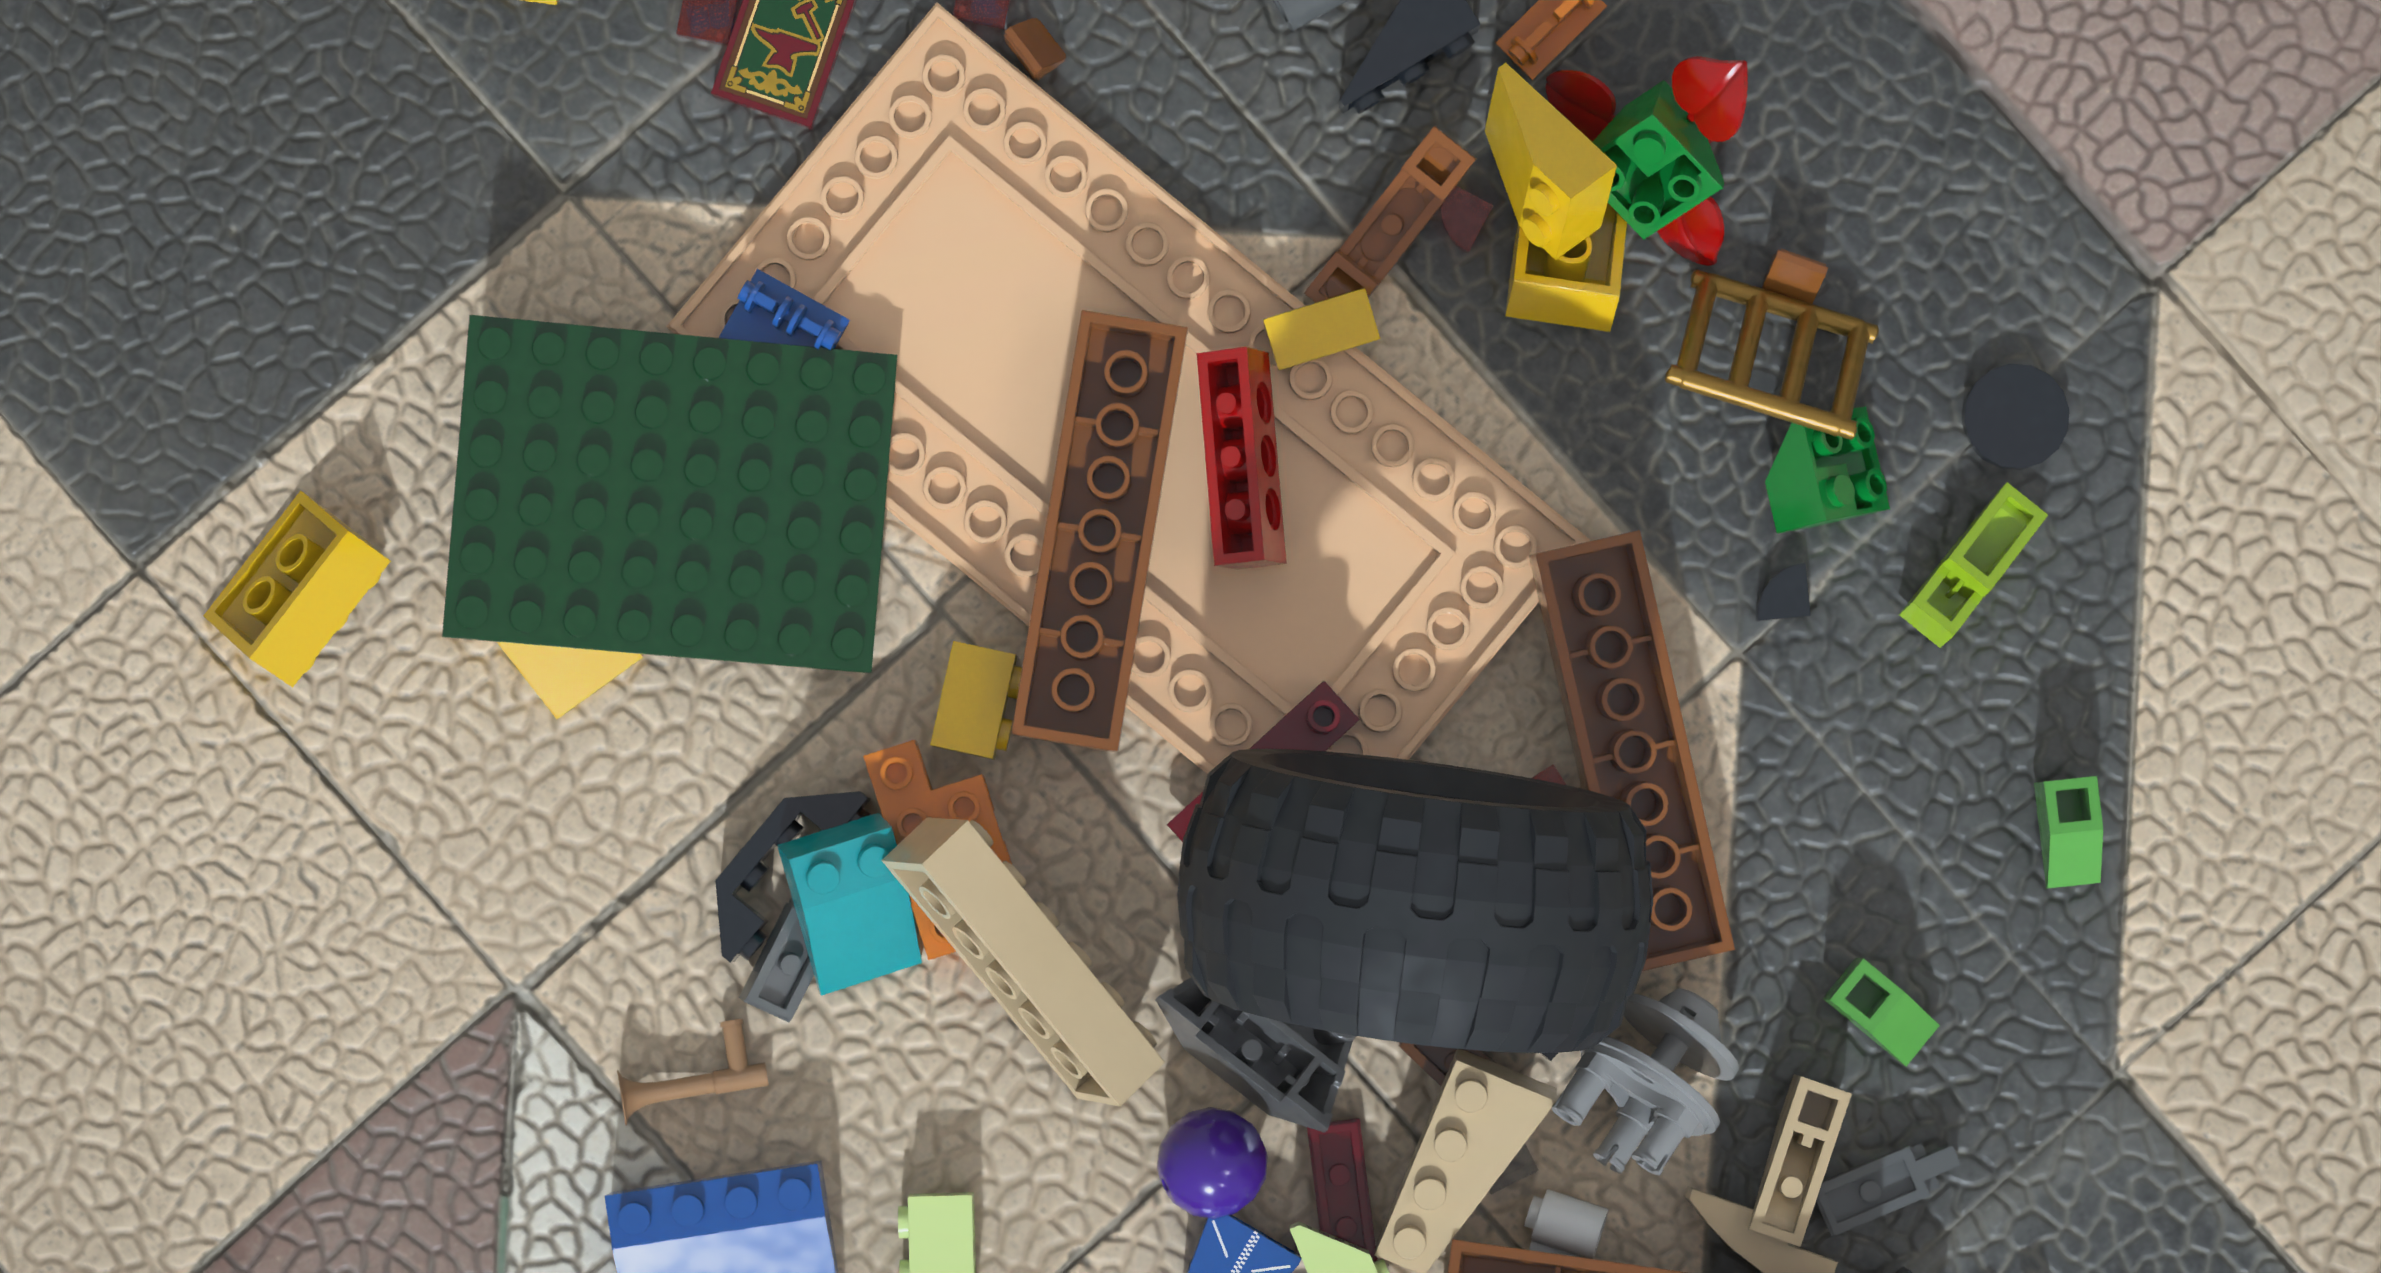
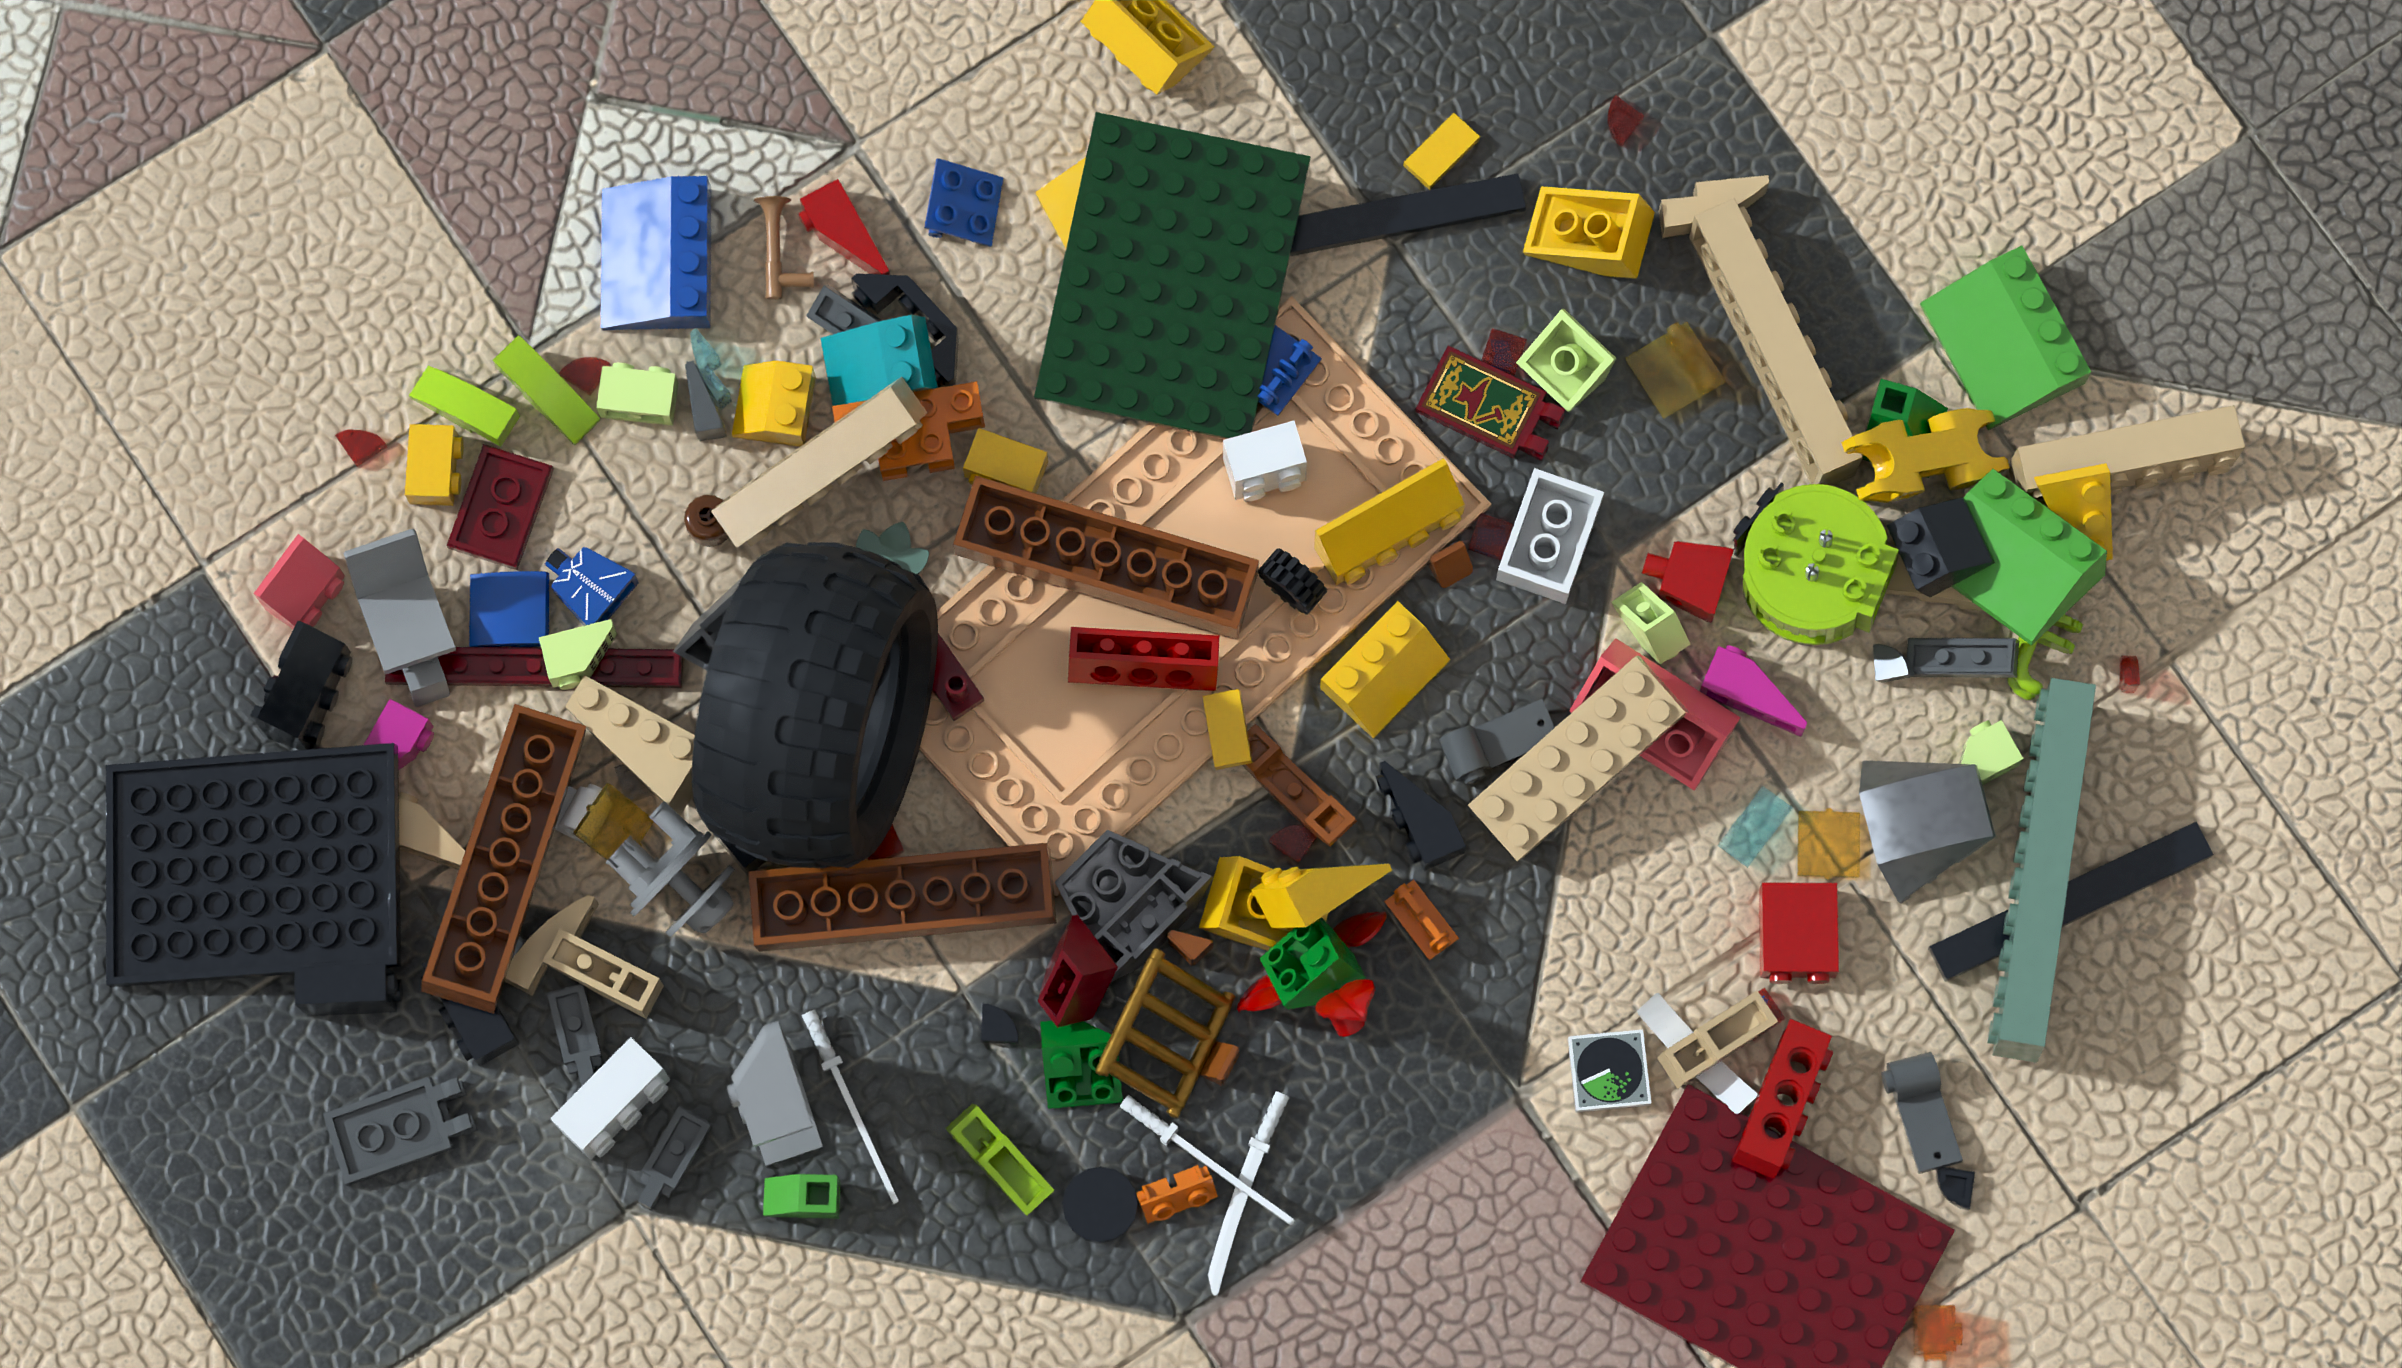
camera: 100 degrees right, 10 degrees down
(418, 140) = (1441, 151): none -> yellow tile
(517, 170) = (1408, 214): none -> black tile
(589, 819) = (963, 203): none -> blue hinge
(648, 993) = (840, 227): none -> red slope
(877, 1157) = (707, 362): none -> clear light blue slope
(926, 1049) = (774, 402): none -> yellow slope
(928, 323) = (1265, 461): none -> white brick
(954, 1146) = (705, 414): none -> dark grey slope
(995, 135) = (1389, 523): none -> yellow slope
(1100, 262) = (1292, 581): none -> black tyre
(1120, 847) = (895, 546): none -> sand green plate
(1122, 1135) = (708, 532): none -> reddish brown head
(1201, 121) = (1384, 670): none -> yellow slope
(1212, 1162) = (665, 576): dark purple piece -> none
(1577, 1183) = (611, 822): none -> clear yellow piece
(1586, 437) = (1130, 897): none -> flat silver wedge
(1638, 339) = (1189, 946): none -> dark orange slope
(1712, 491) = (1076, 976): none -> dark red slope
(1871, 819) = (831, 1062): none -> white sword
(1881, 1010) = (696, 1047): bright green slope -> none
(1903, 335) = (1168, 1133): none -> white sword
(1905, 208) = (1255, 1155): none -> white sword
(1961, 882) = (774, 1099): none -> light grey windscreen
(1979, 293) = (1193, 1189): none -> orange hinge
(1979, 1117) = (611, 1099): none -> white brick
(2035, 1021) = (672, 1156): none -> dark grey hinge

